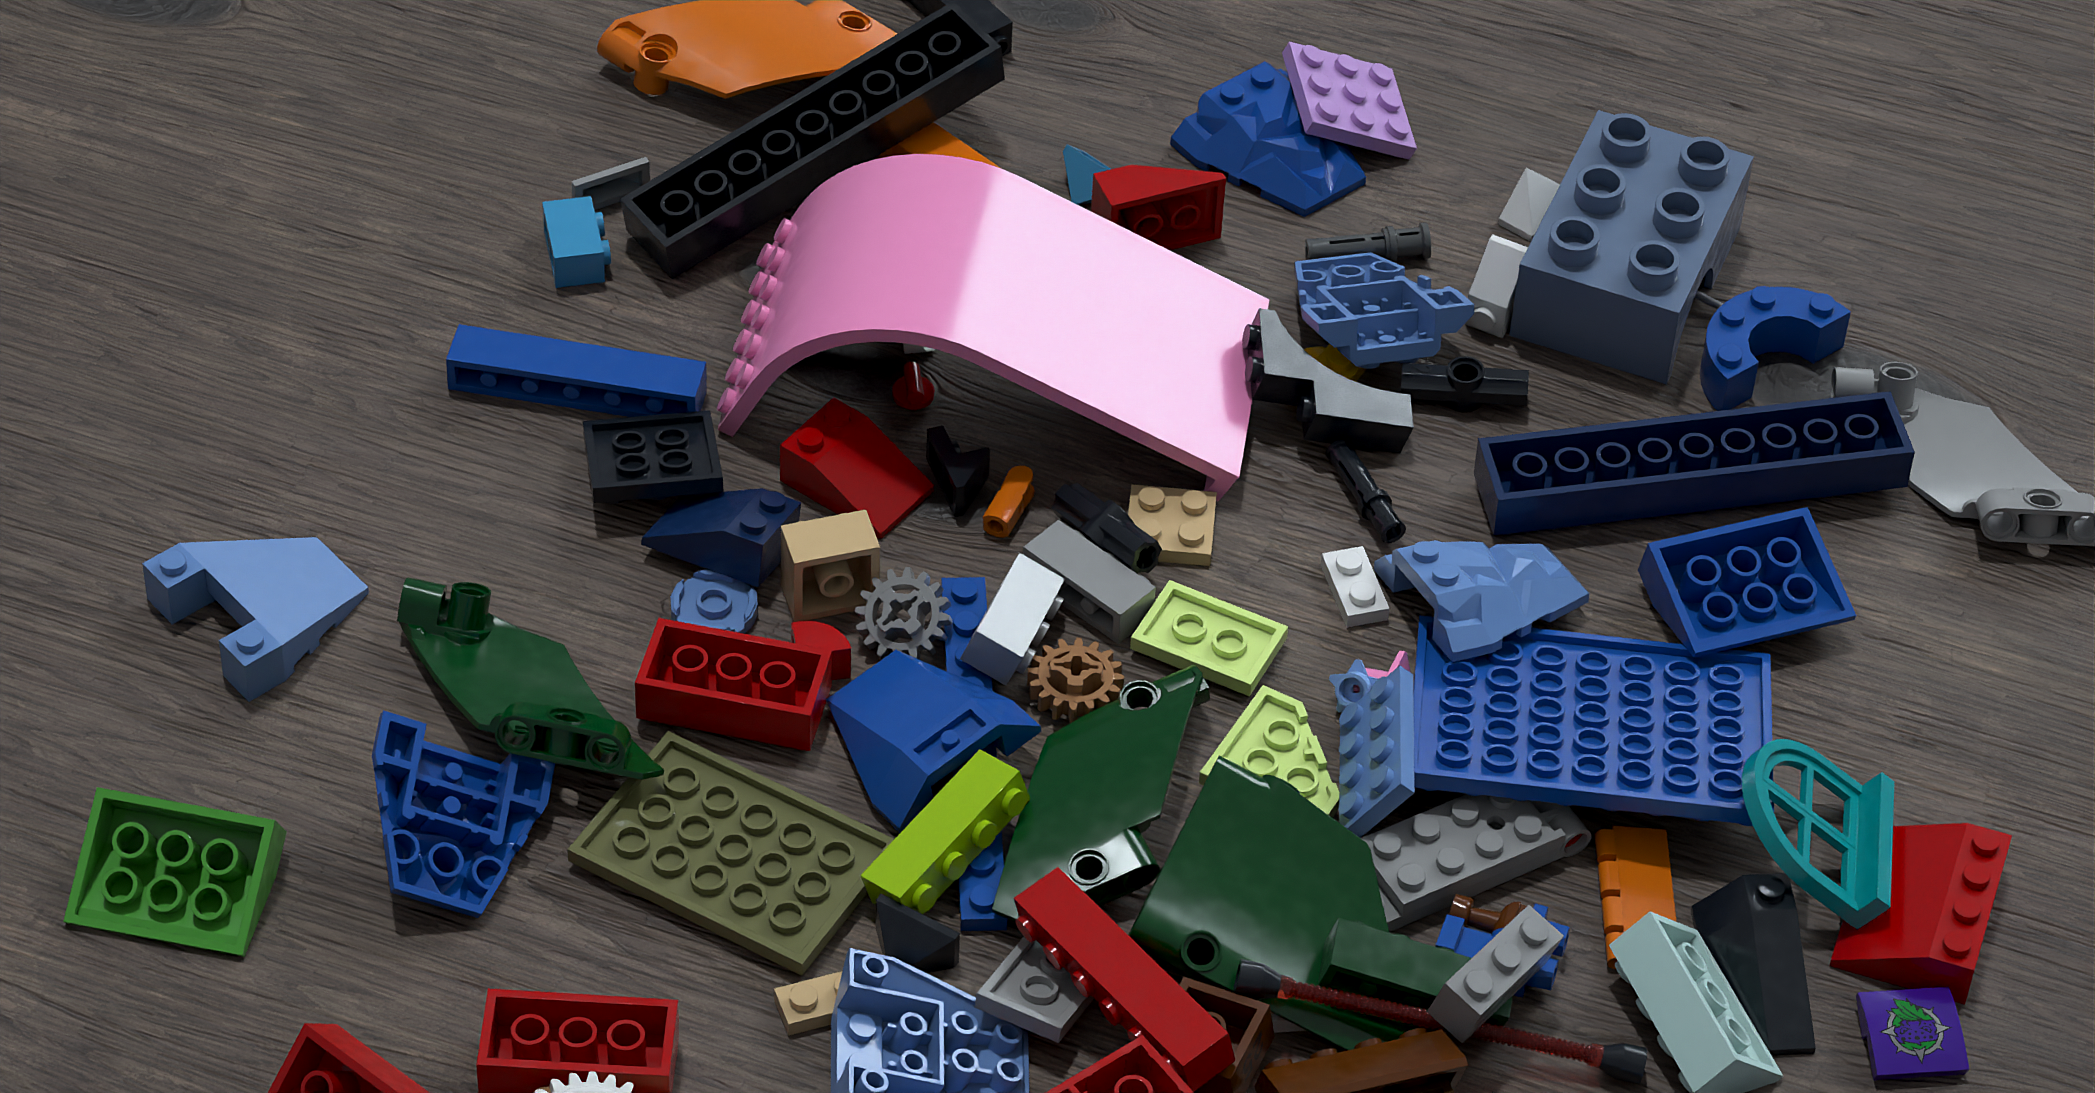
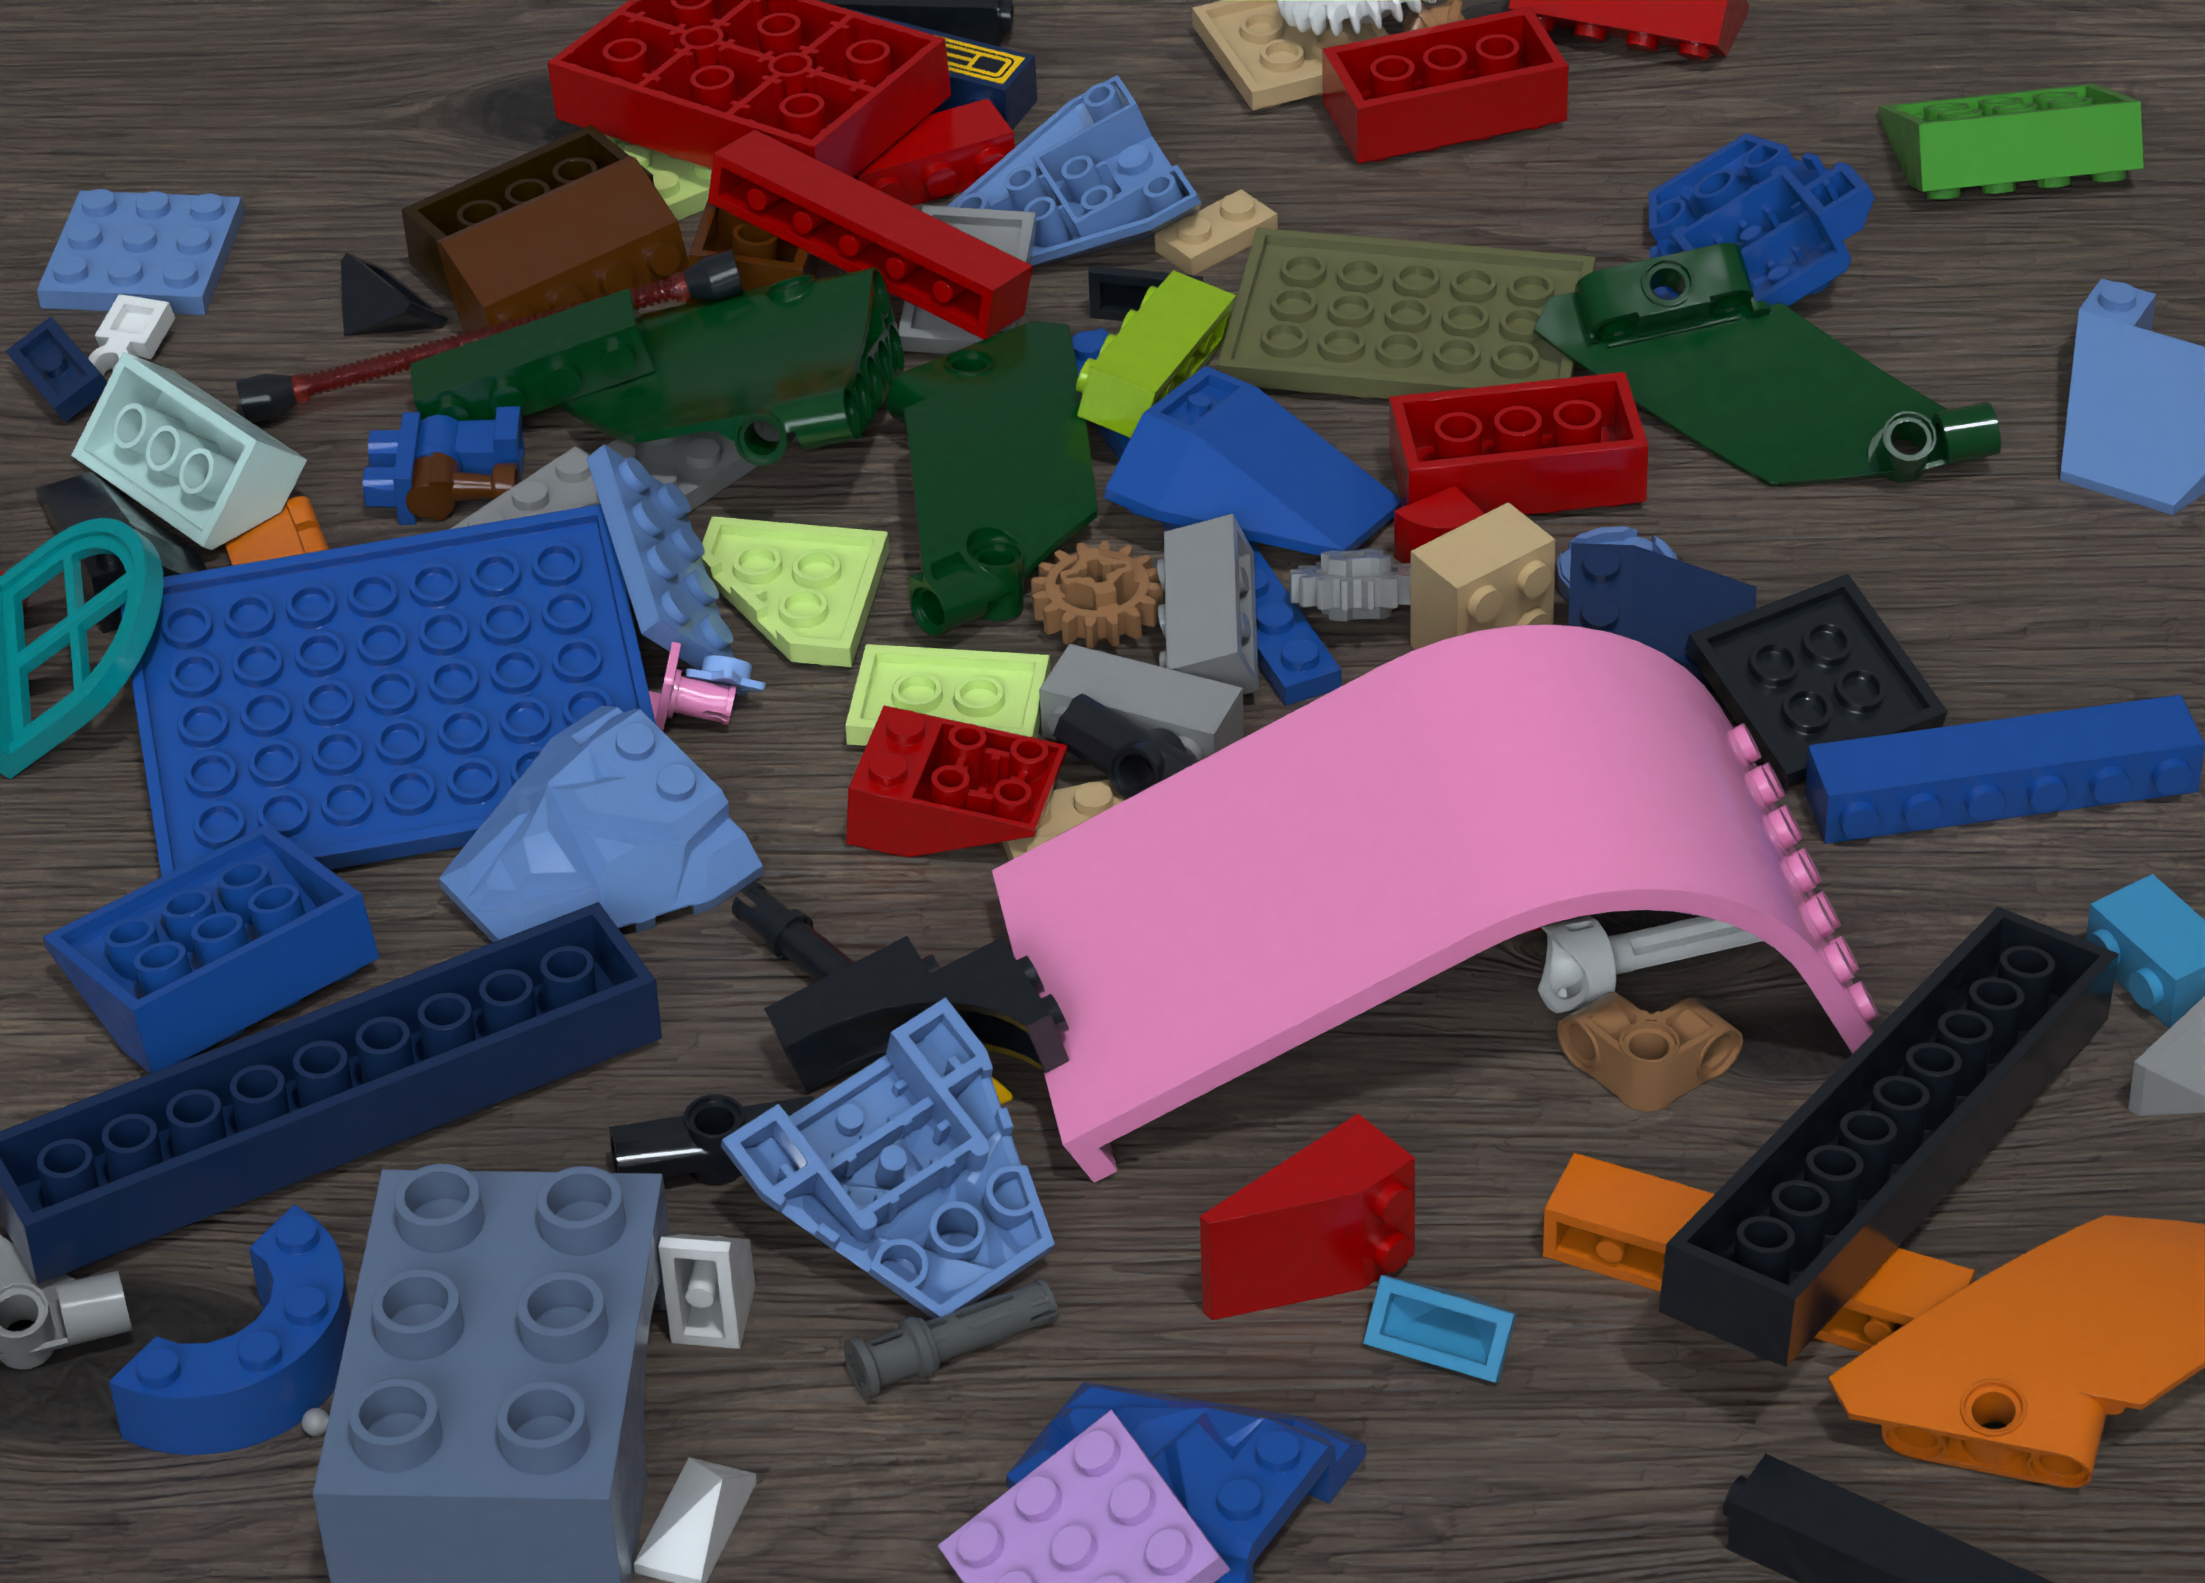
camera: 165 degrees right, 5 degrees down
(1239, 554) = (947, 785): none -> red slope
(1354, 586) = (784, 835): white plate -> none
(1495, 973) = (430, 342): light grey brick -> none

